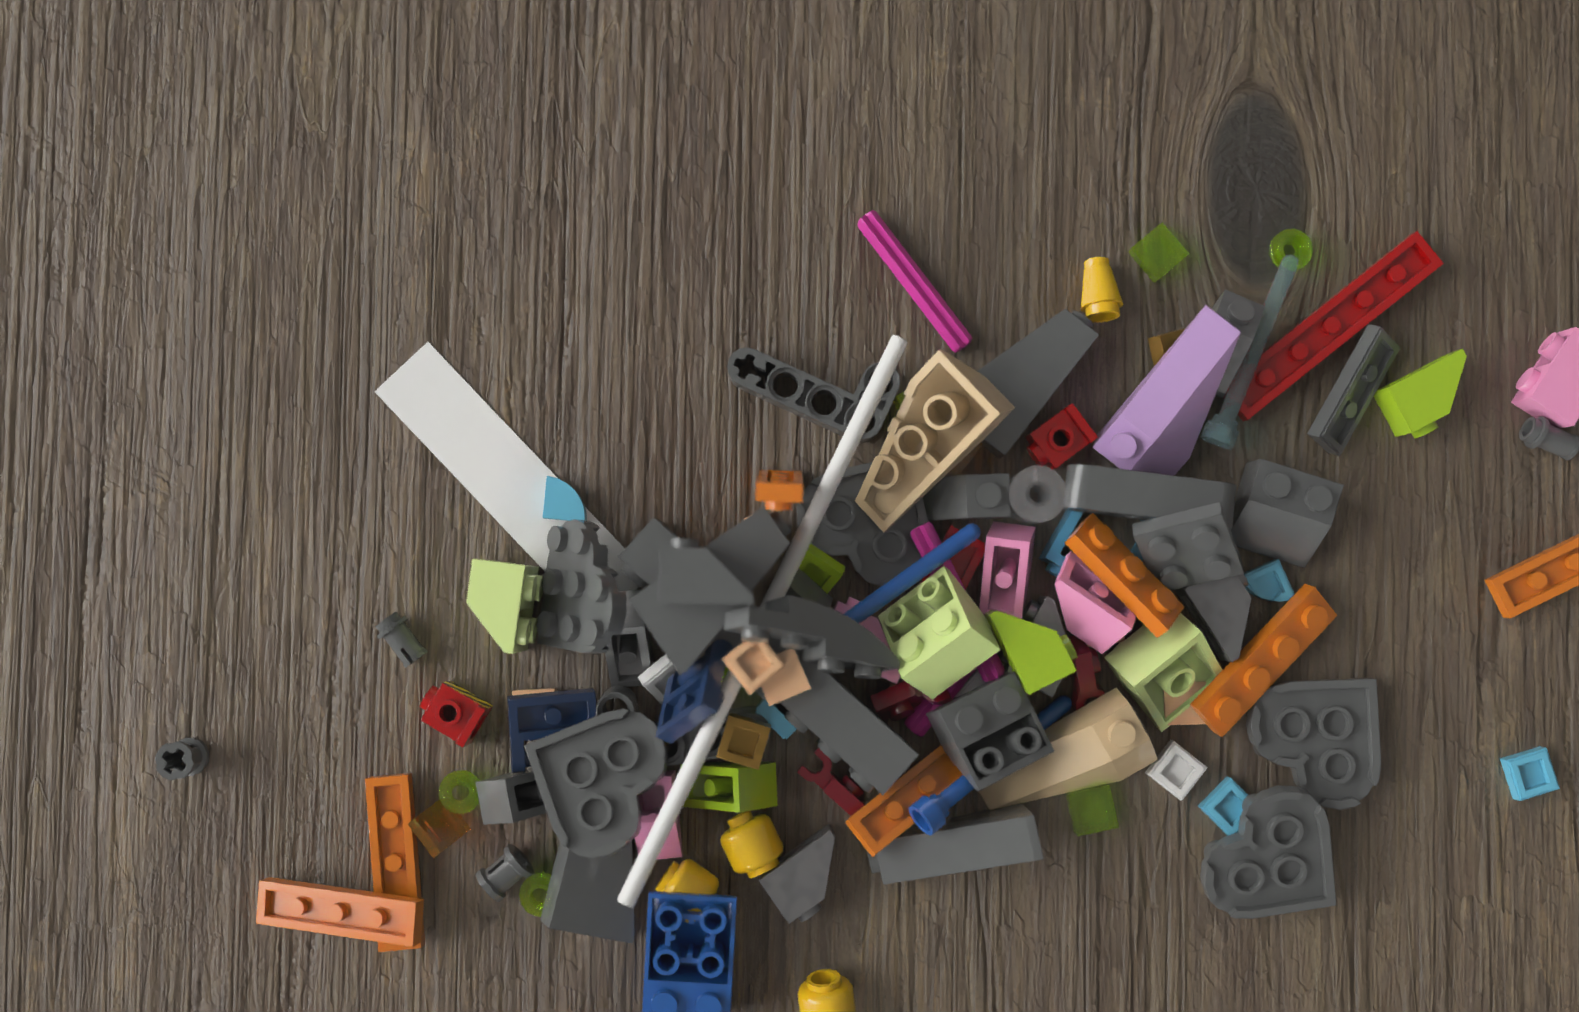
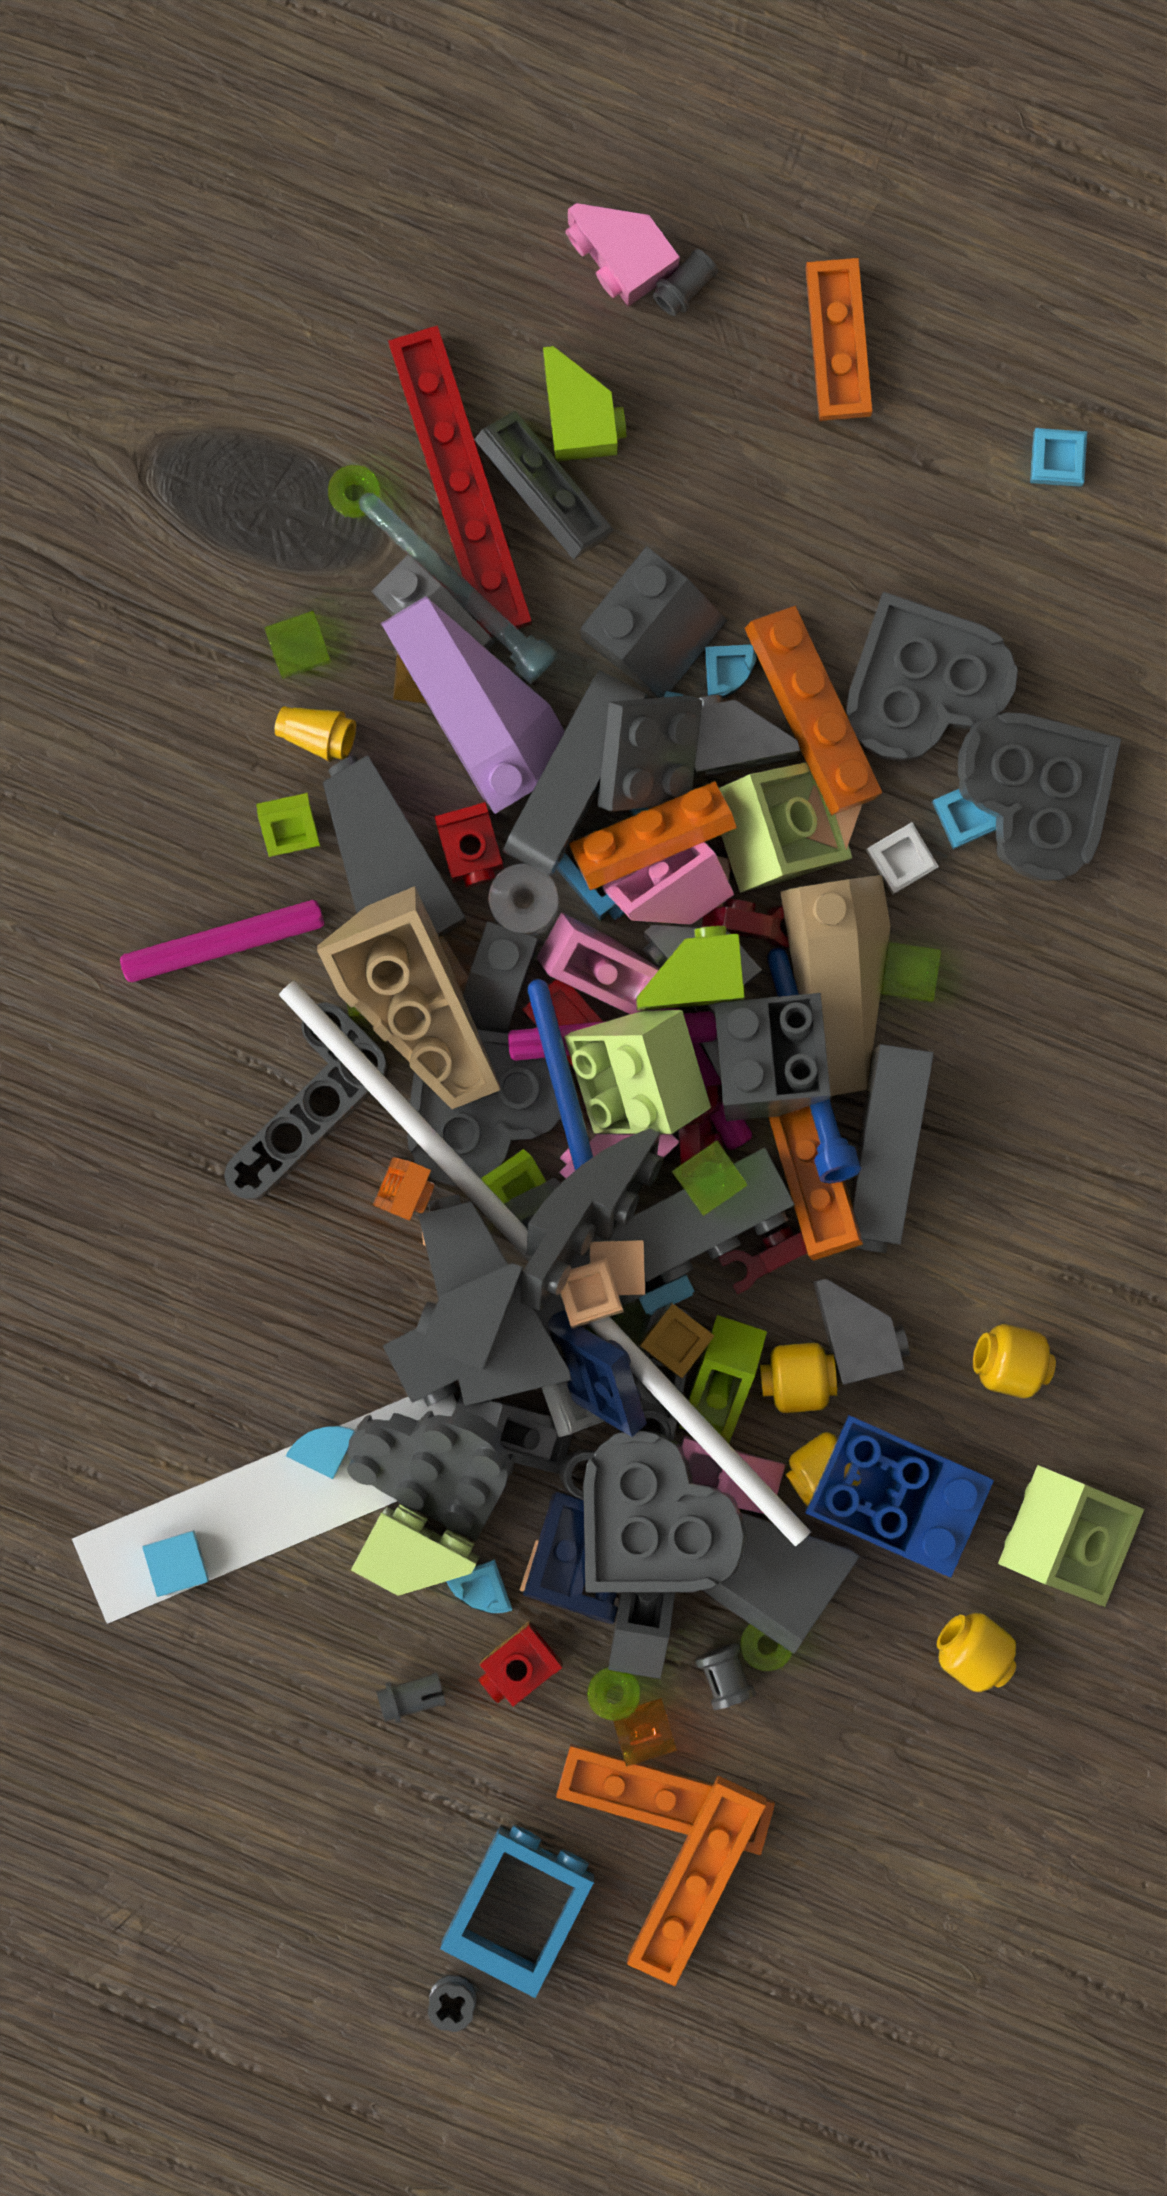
camera: 65 degrees left, 0 degrees up
(228, 773) = (494, 1958): none -> dark azure window
(436, 425) = (175, 1563): none -> medium azure tile
(502, 665) = (482, 1589): none -> medium azure tile
(878, 722) = (709, 1178): none -> clear neon green plate
(1021, 296) = (287, 824): none -> lime plate

